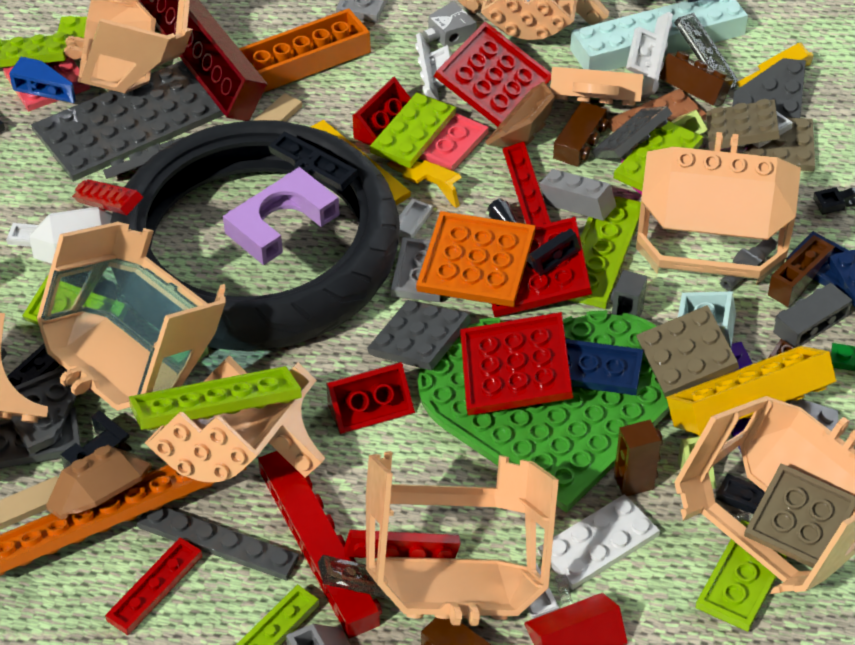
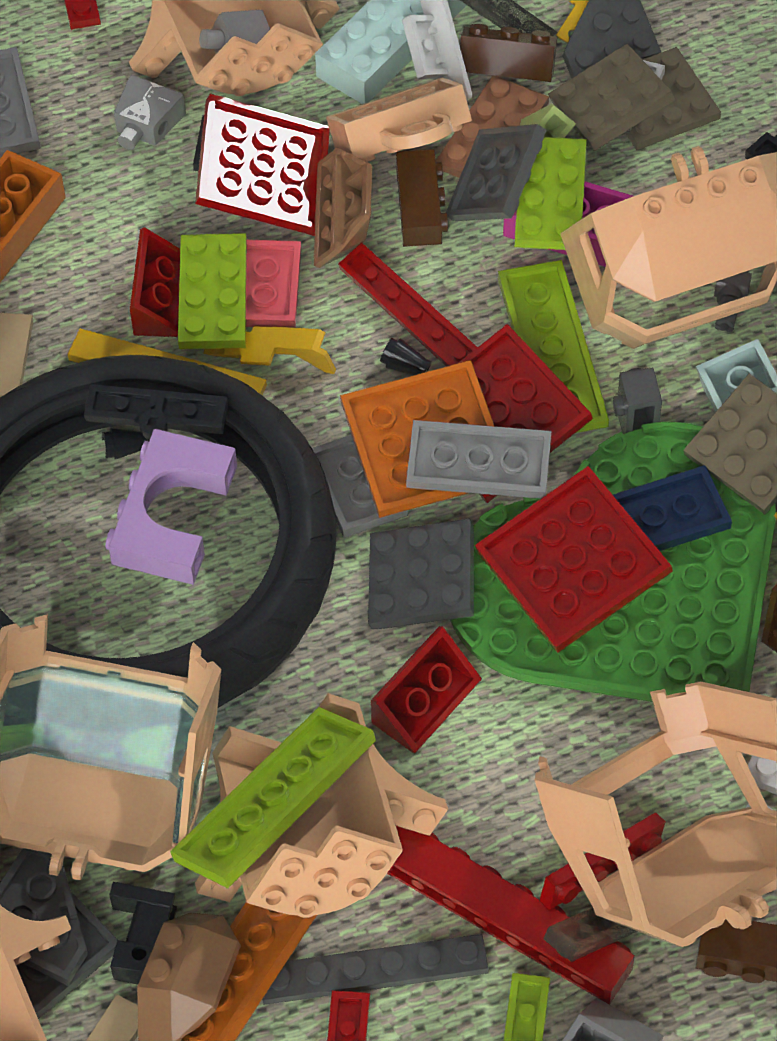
camera: 30 degrees left, 10 degrees up
(413, 217) = (295, 404): white tile -> none
(430, 63) = (171, 179): white bracket -> none
(497, 280) = (478, 459): none -> light grey plate
(554, 252) = (514, 385): black panel -> none
(578, 194) = (482, 288): light grey brick -> none

